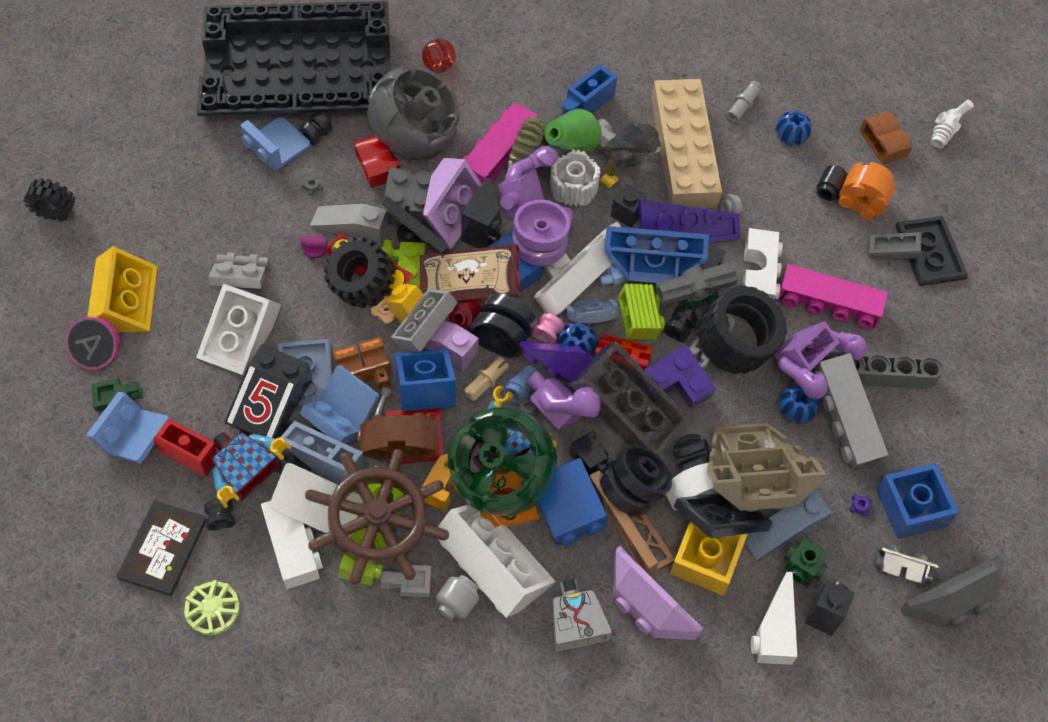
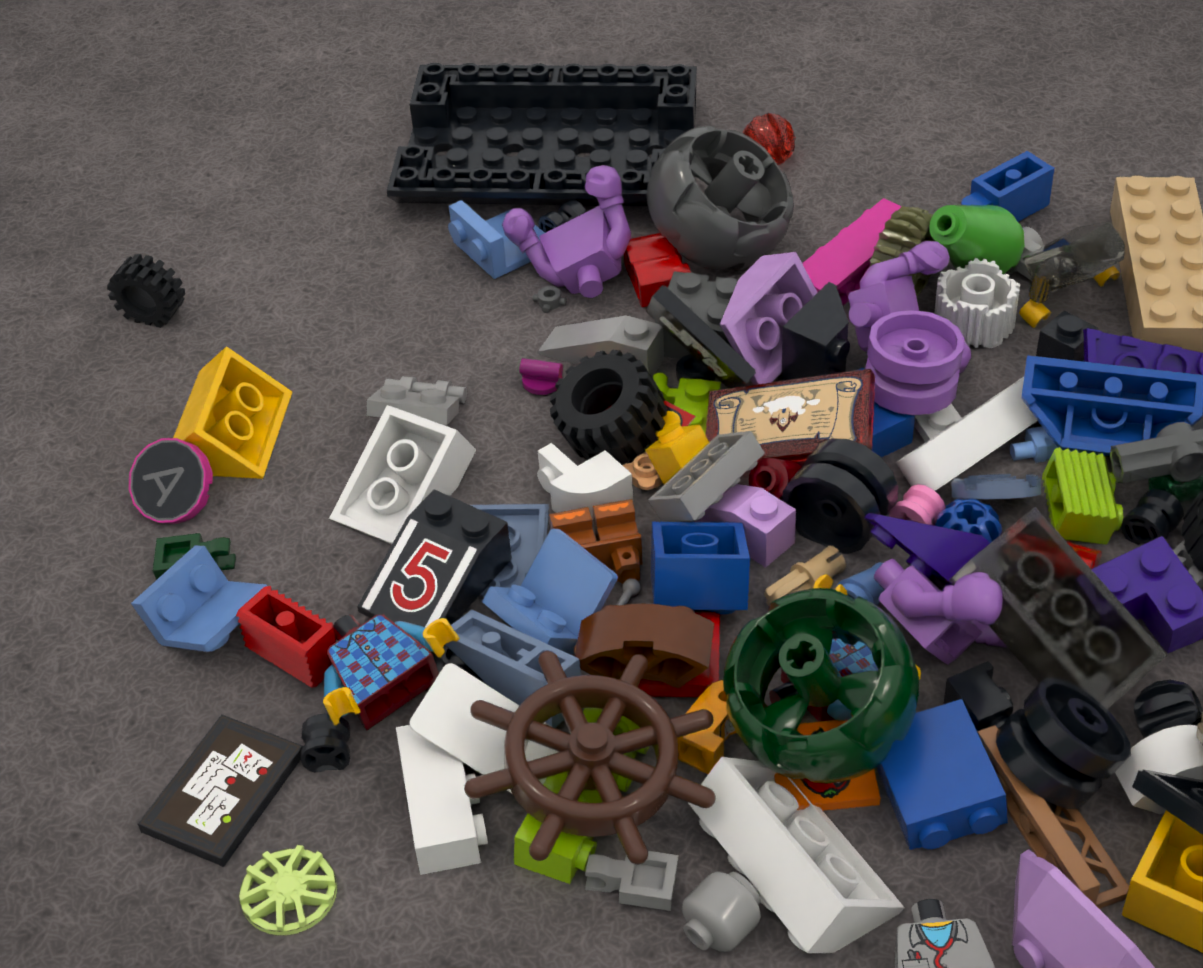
camera: 15 degrees right, 15 degrees down
(328, 151) = (583, 249): none -> medium lavender torso
(351, 329) = (582, 486): none -> white brick

